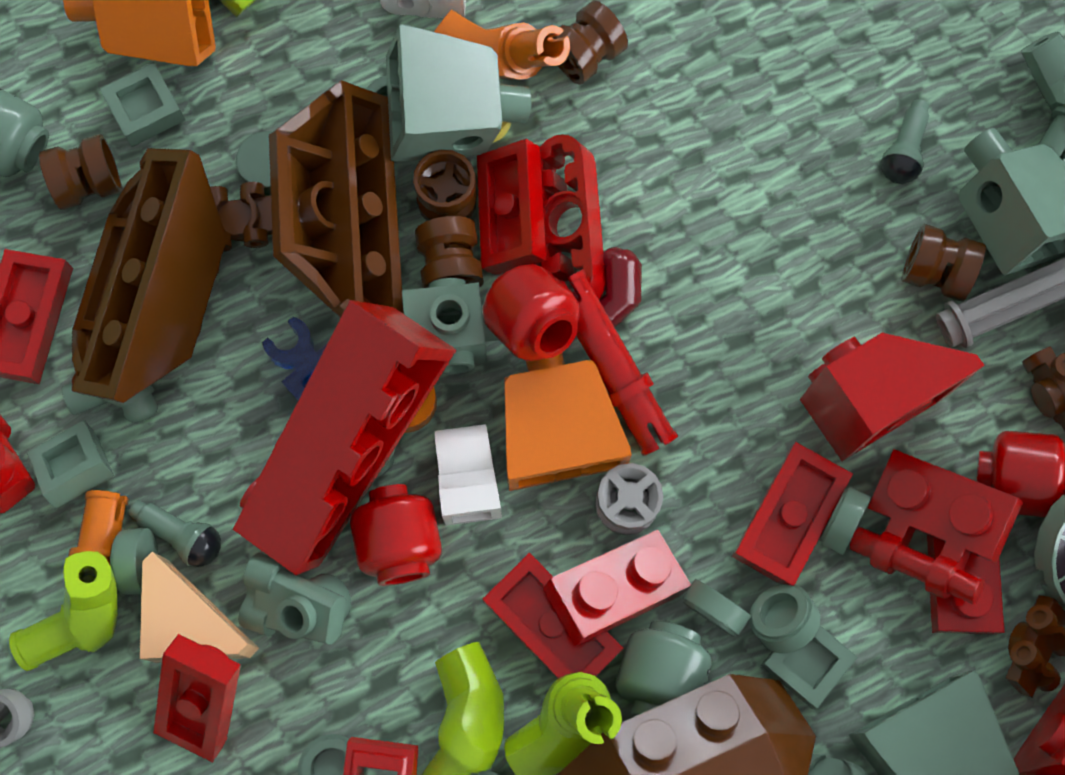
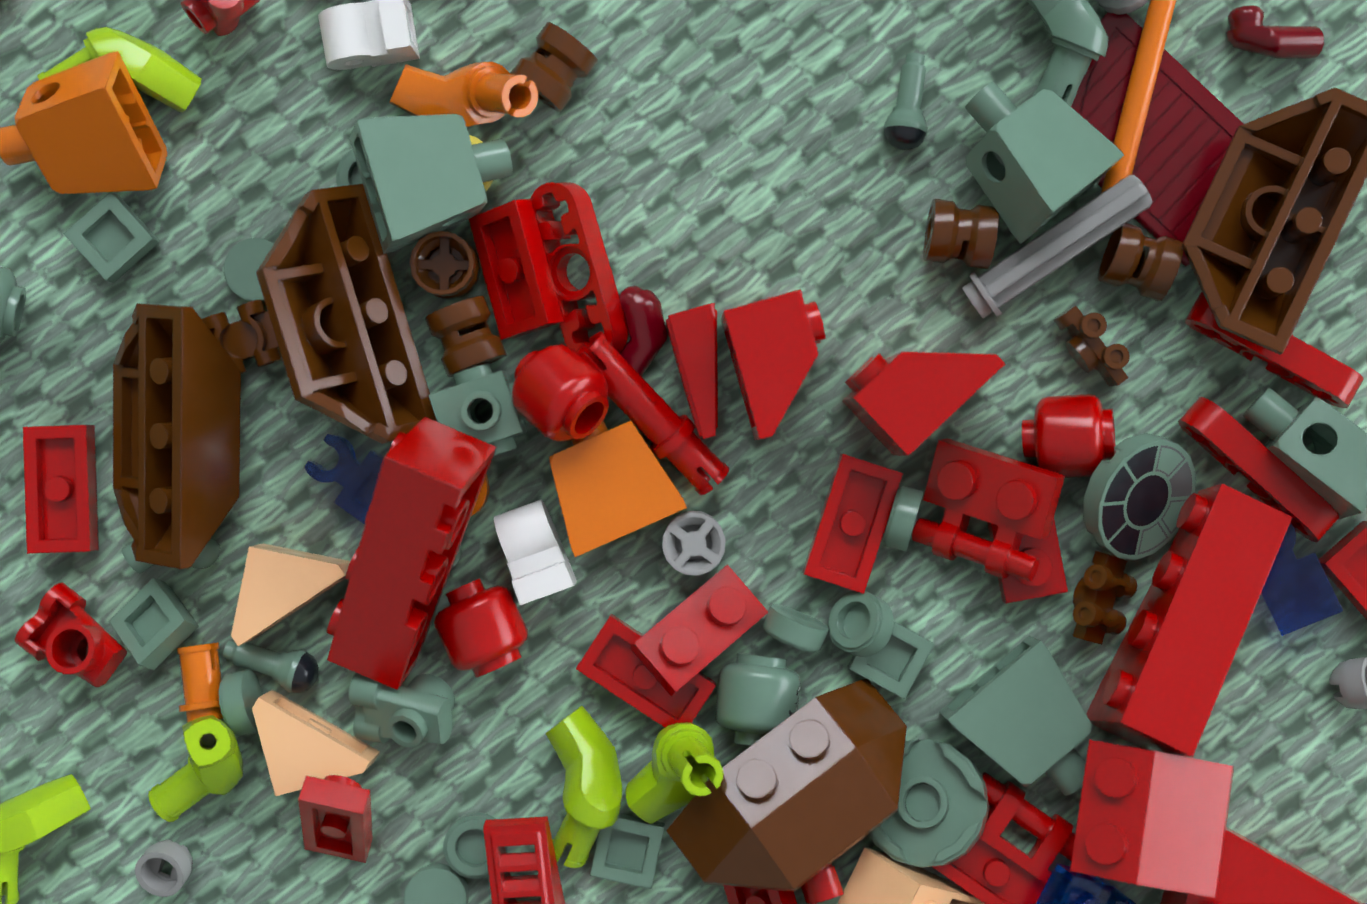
camera: 10 degrees left, 15 degrees up
(80, 172) = (72, 327): reddish brown wheel -> none
(204, 453) = (278, 584): none -> light nougat slope
(666, 316) = (695, 351): none -> red slope
(742, 320) = (772, 354): none -> red slope

